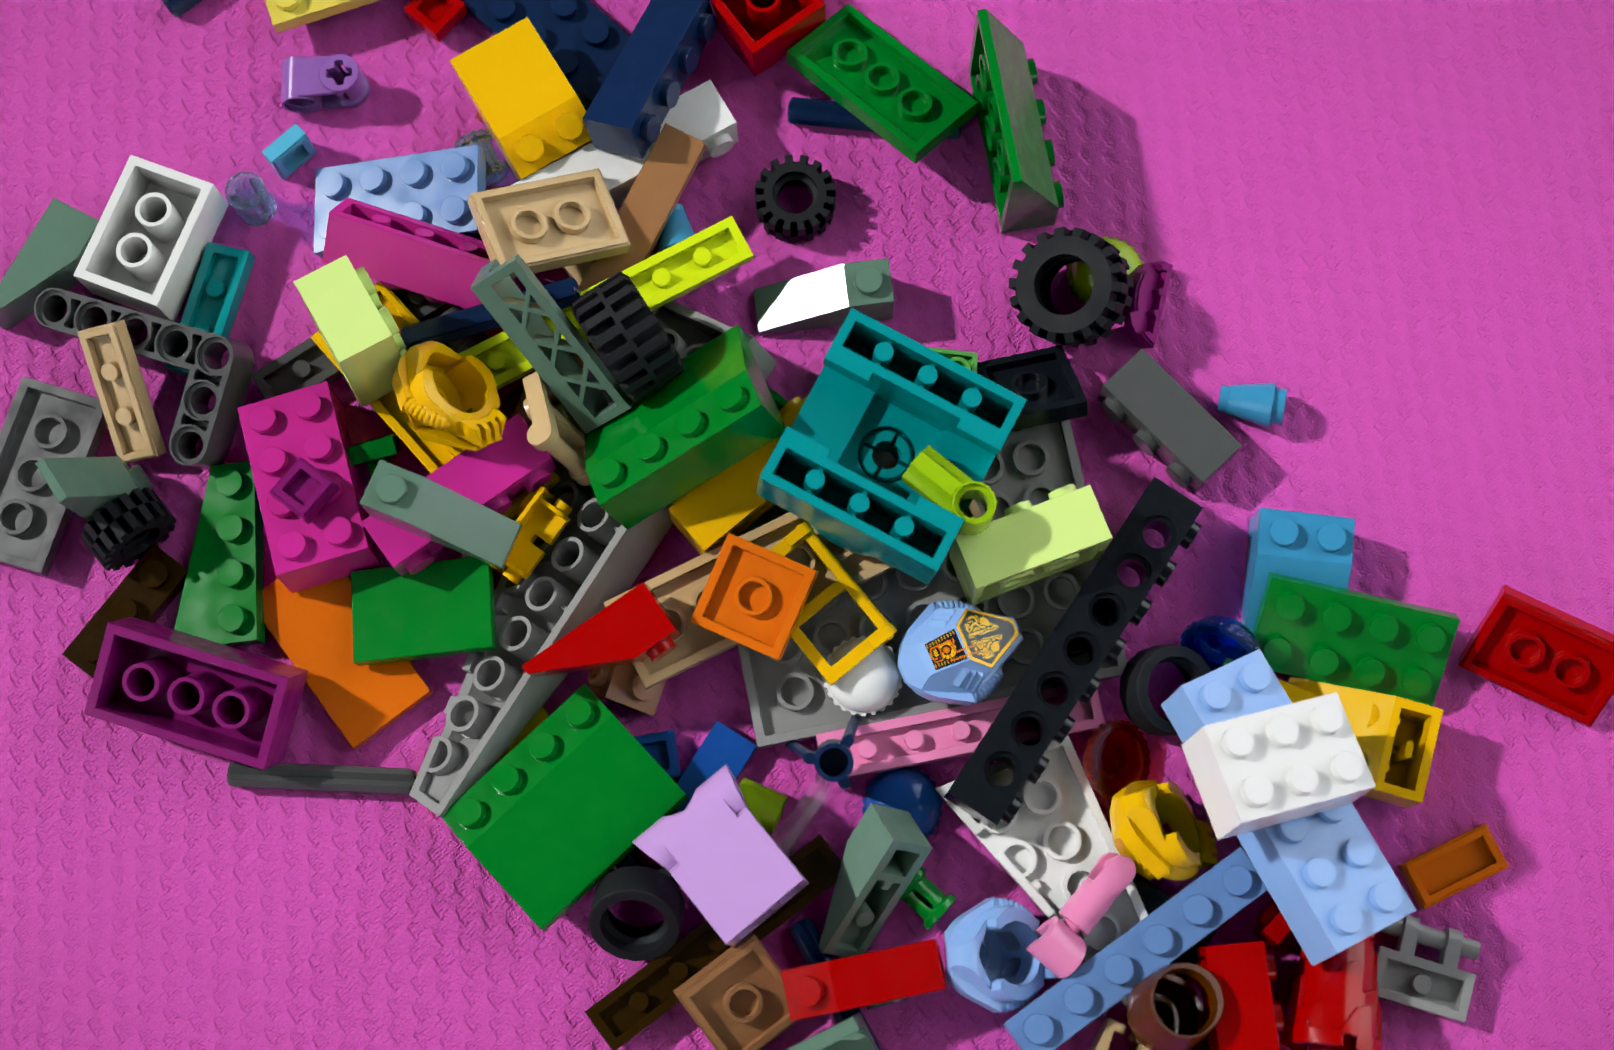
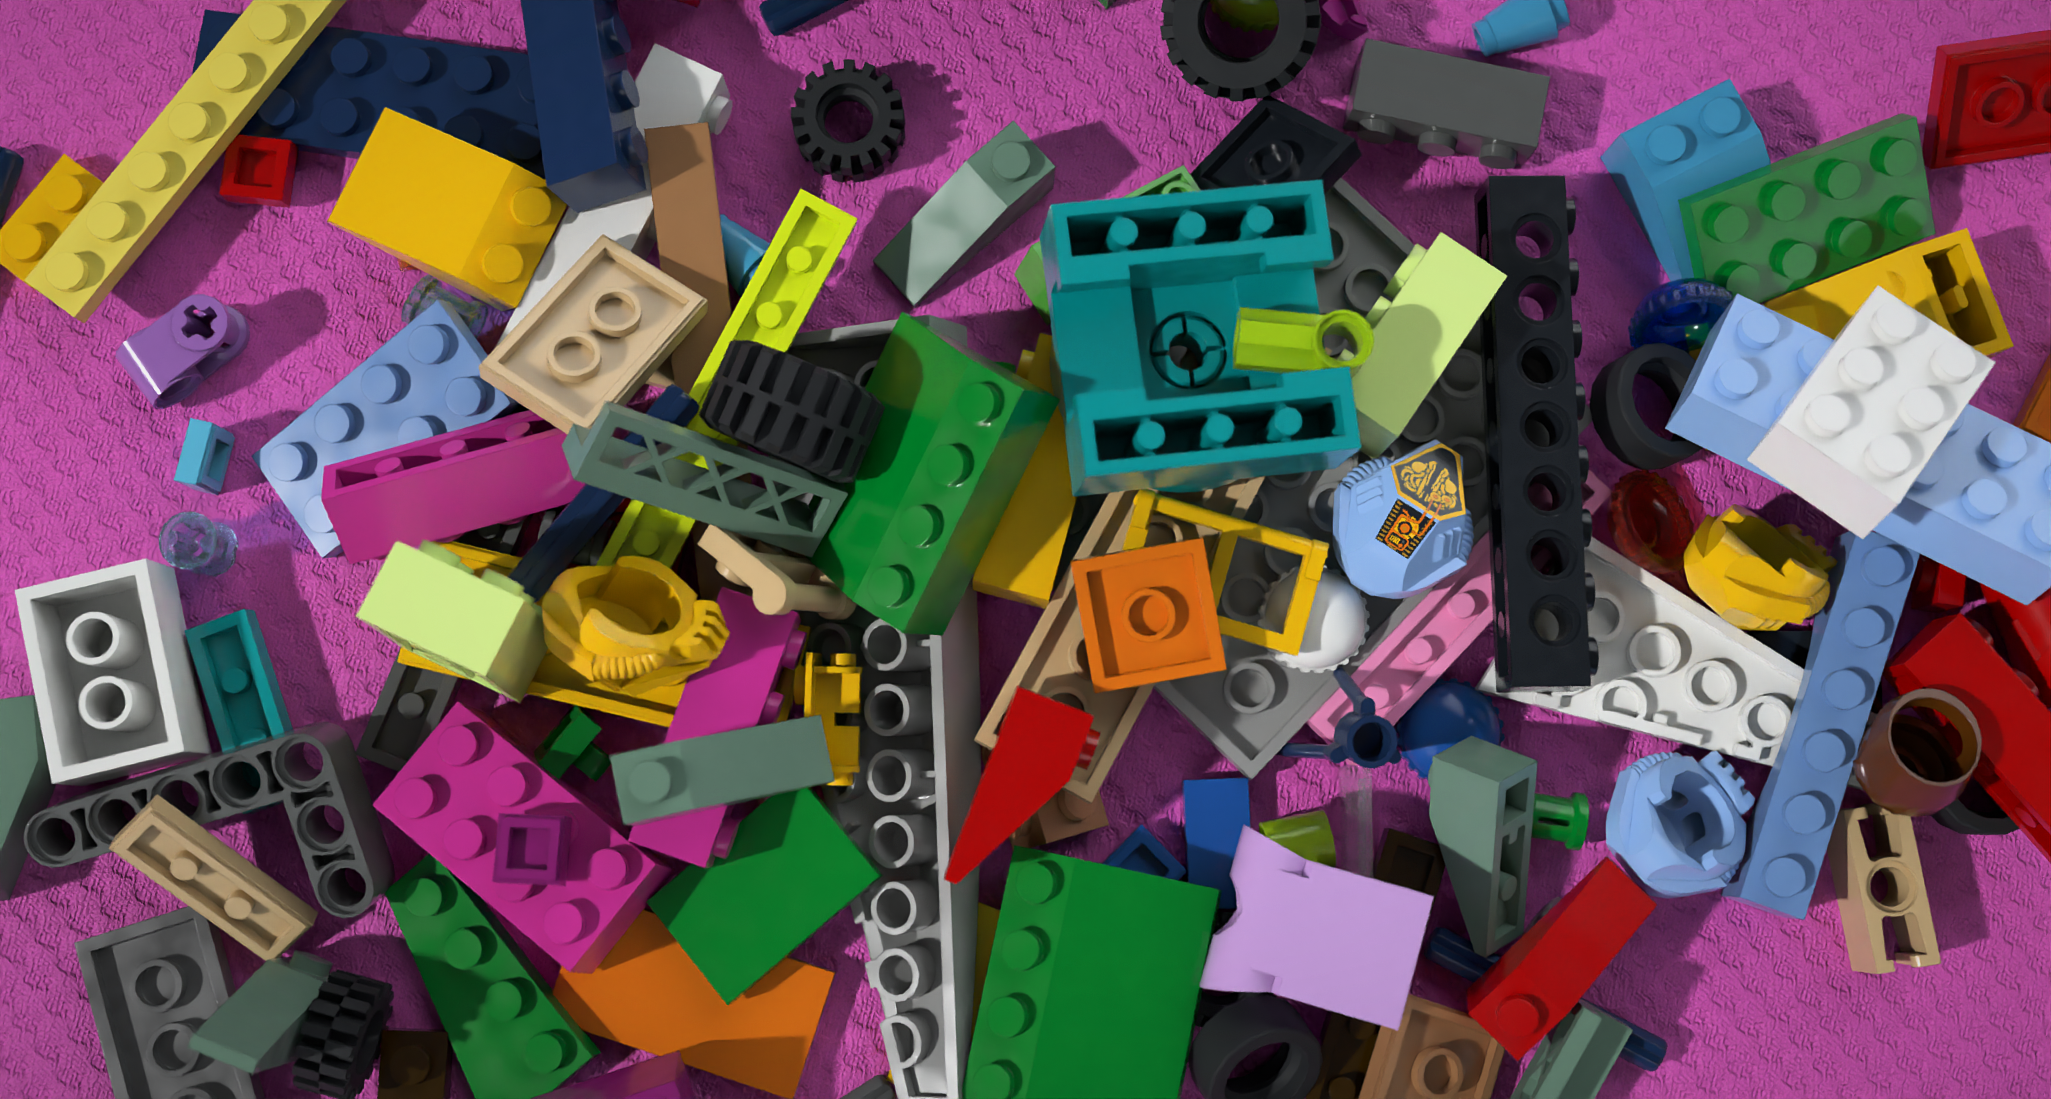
camera: 45 degrees left, 5 degrees up
(1060, 945) = (1746, 770): bright pink piece -> none

